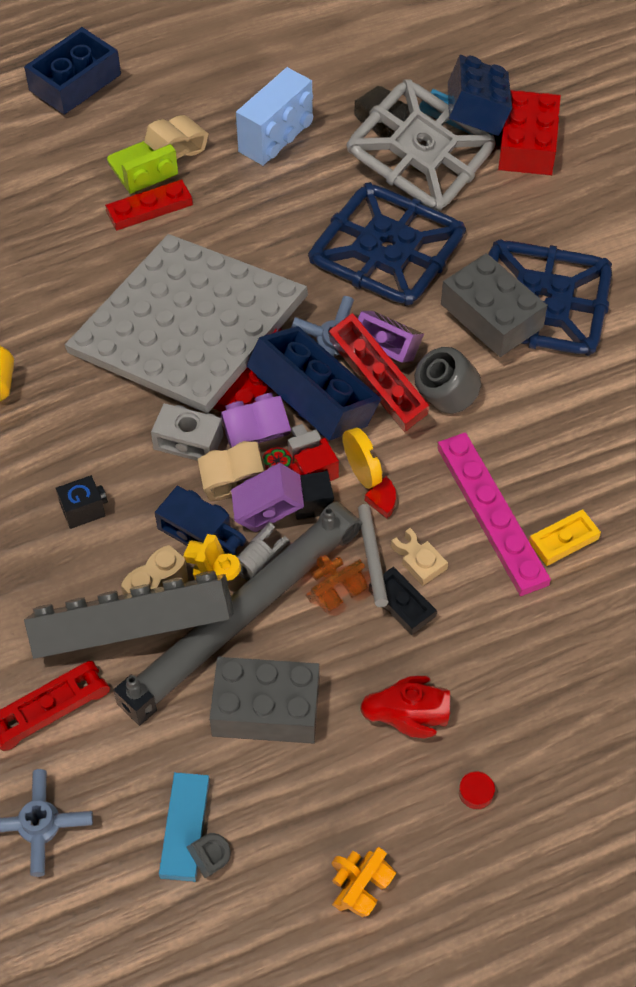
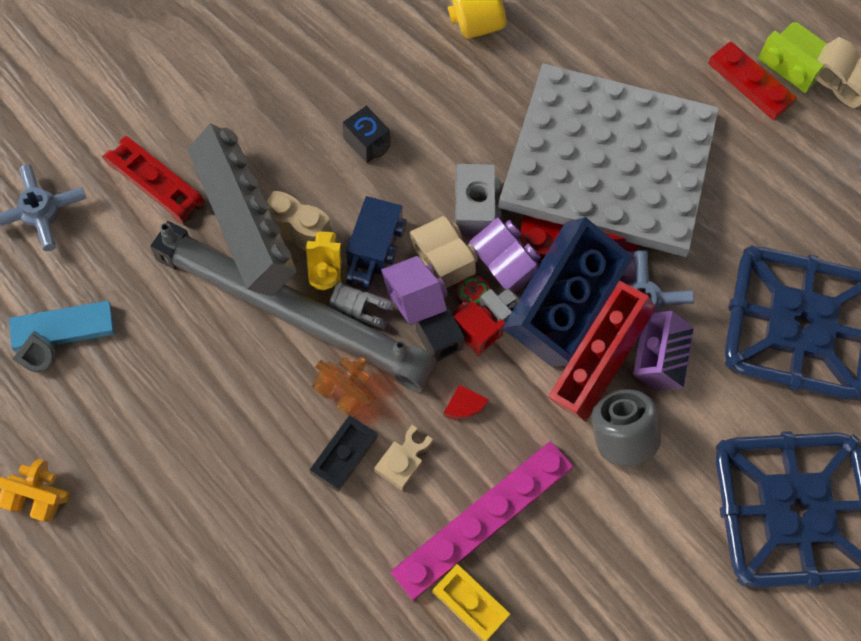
camera: 70 degrees right, 10 degrees up
(265, 700) = (195, 355): dark grey brick -> none
(357, 449) = (491, 364): yellow tile -> none
(372, 556) = (383, 409): light grey bar -> none
(409, 706) = (220, 489): red animal -> none
(476, 790) = (152, 579): red tile -> none
(493, 304) = (746, 450): dark grey brick -> none

